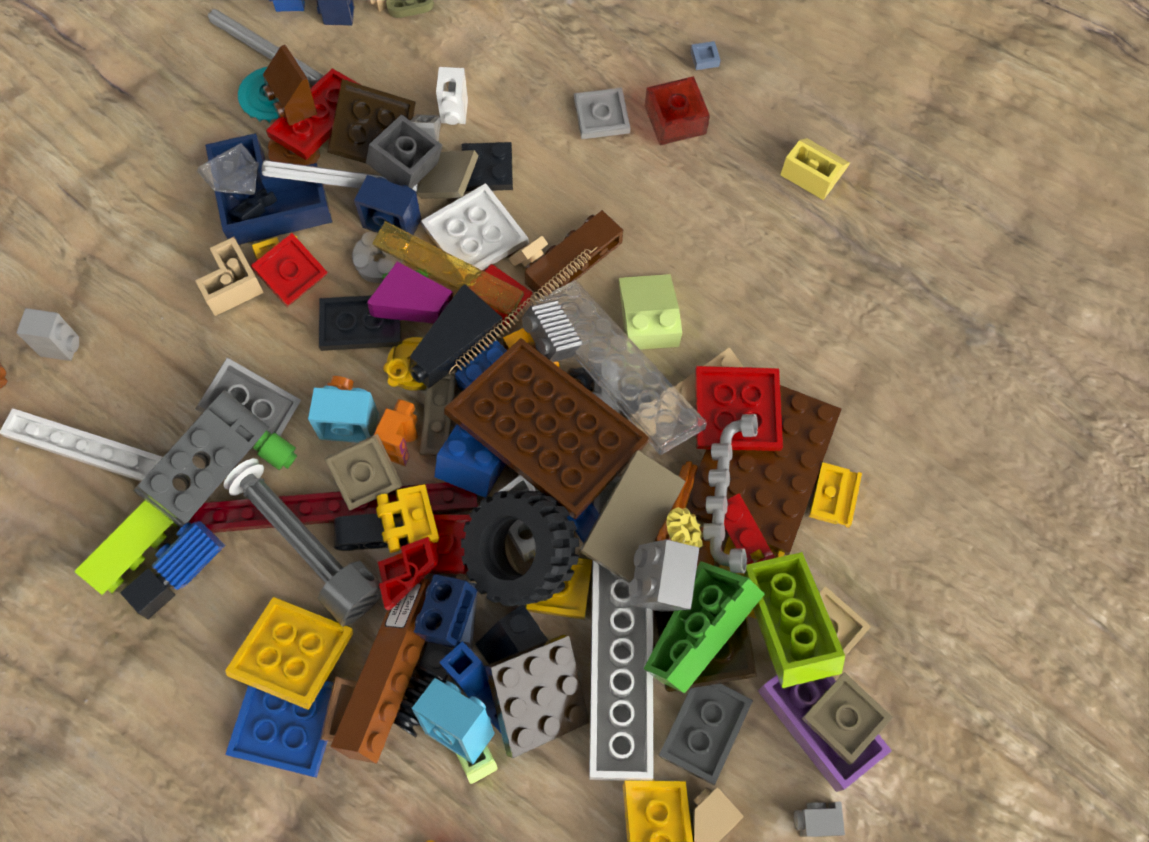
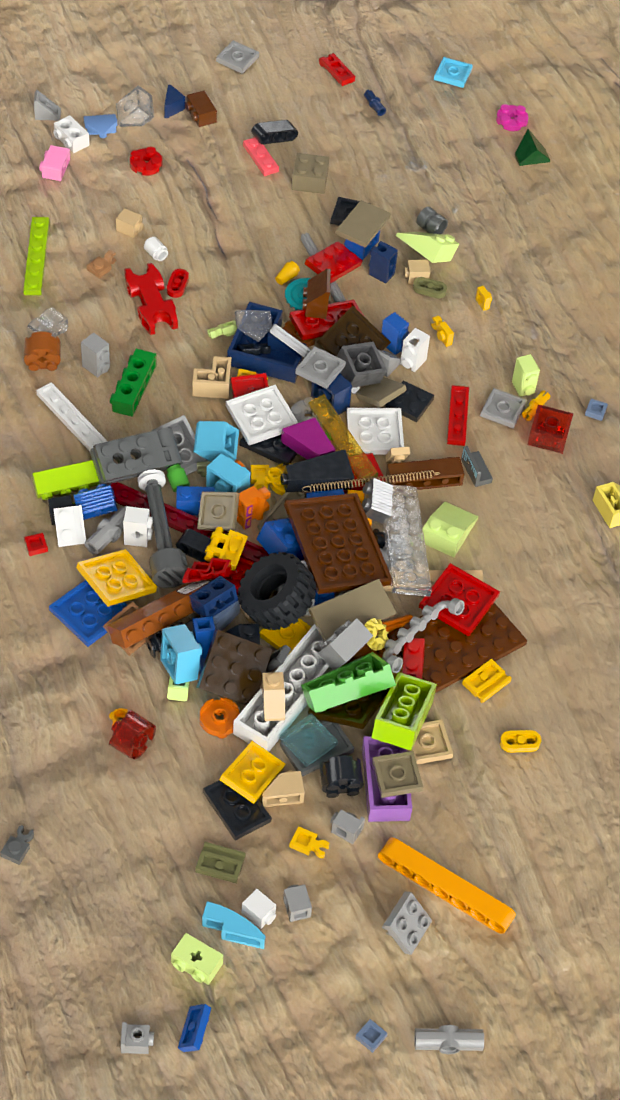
camera: 30 degrees right, 15 degrees down
(32, 134) = (155, 248): none -> white brick
(84, 219) = (153, 308): none -> red piece
(92, 169) = (177, 283): none -> red plate
(138, 377) = (133, 382): none -> green brick
(146, 667) = (36, 544): none -> red plate
(176, 613) = (70, 526): none -> white plate
(197, 196) = (228, 329): none -> yellowish green plate
(225, 74) = (287, 273): none -> yellow cone
(233, 582) = (107, 531): none -> light grey piece
(269, 558) = (137, 526): none -> white brick
(271, 28) = (336, 258): none -> red plate
(291, 367) = (216, 438): none -> medium azure slope
(299, 411) = (202, 468): none -> olive plate
(310, 470) = (189, 498): none -> blue brick
(324, 294) = (261, 414): none -> white plate
(361, 189) = (320, 367): none -> light grey plate
(375, 381) = (258, 475): none -> yellow plate
(414, 83) = (395, 330): none -> blue brick
(467, 52) = (444, 332): none -> yellow plate
(557, 153) = (458, 415): none -> red plate
(570, 782) = (217, 727): none -> orange plate
(582, 638) = (277, 658): none -> dark grey tile
(603, 57) = (525, 375): none -> yellowish green brick
(621, 711) = (273, 696): none -> slope
(624, 211) = (476, 467): none -> dark grey panel
(635, 88) = (531, 409): none -> yellow pin
(694, 730) = (308, 740): none -> clear light blue plate
(771, 758) = (341, 776): none -> black brick
(928, 554) = (519, 740): none -> yellow plate
(990, 820) = (447, 885): none -> light orange beam

